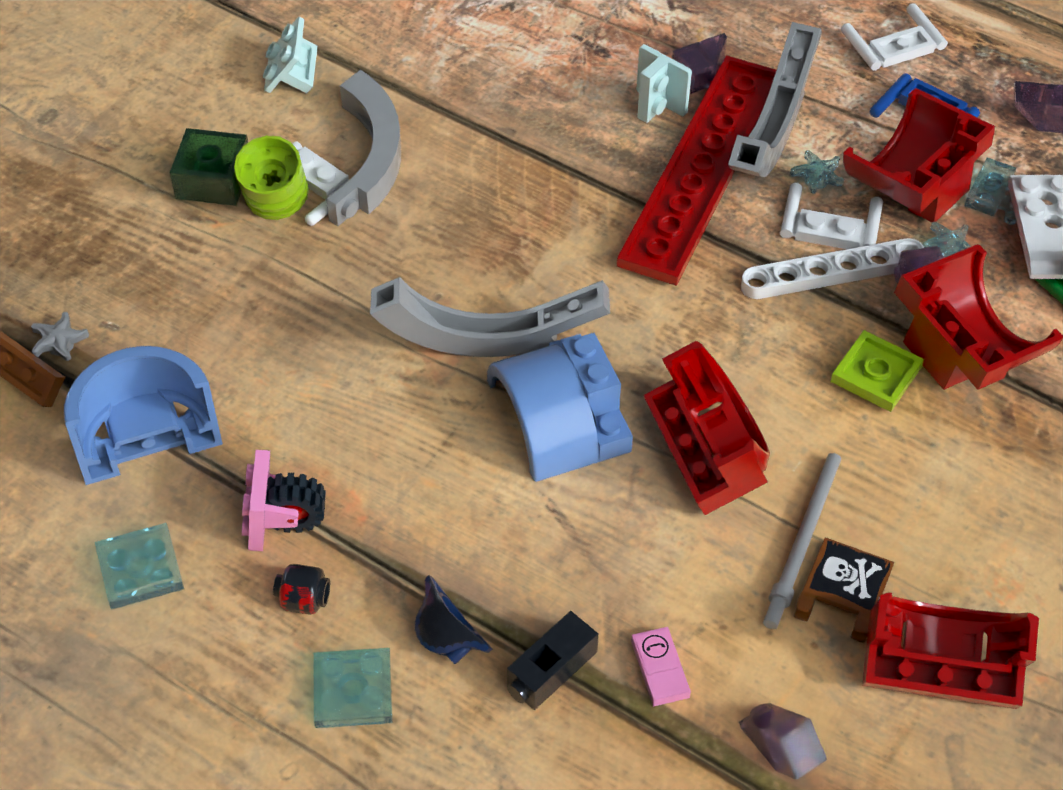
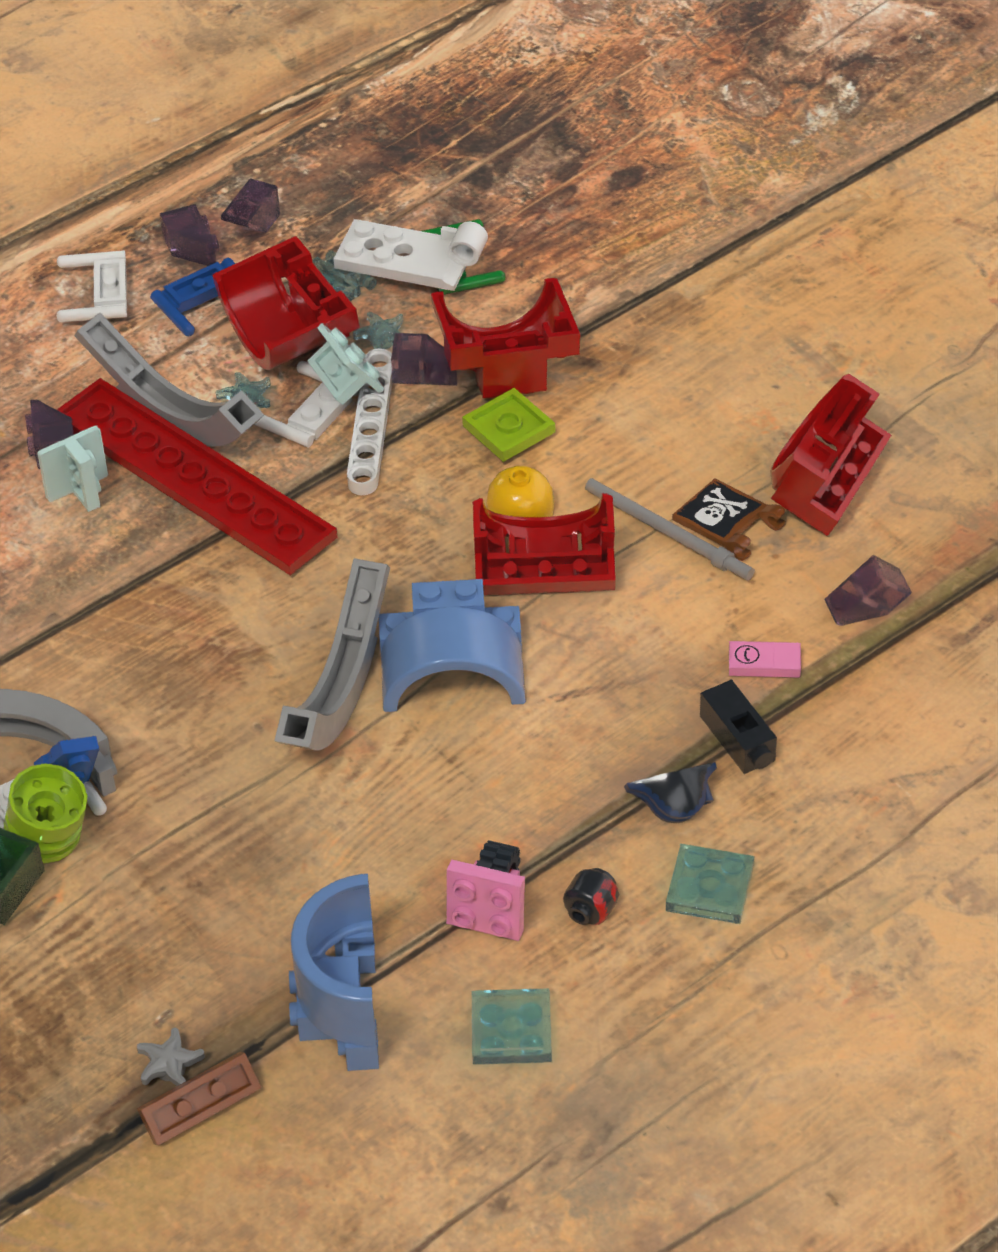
camera: 70 degrees left, 5 degrees down
(318, 172) = (75, 755): none -> blue wing
(783, 405) = (521, 493): none -> yellow cylinder
(872, 219) = (342, 366): none -> light aqua bracket
(993, 75) = (189, 235): none -> slope

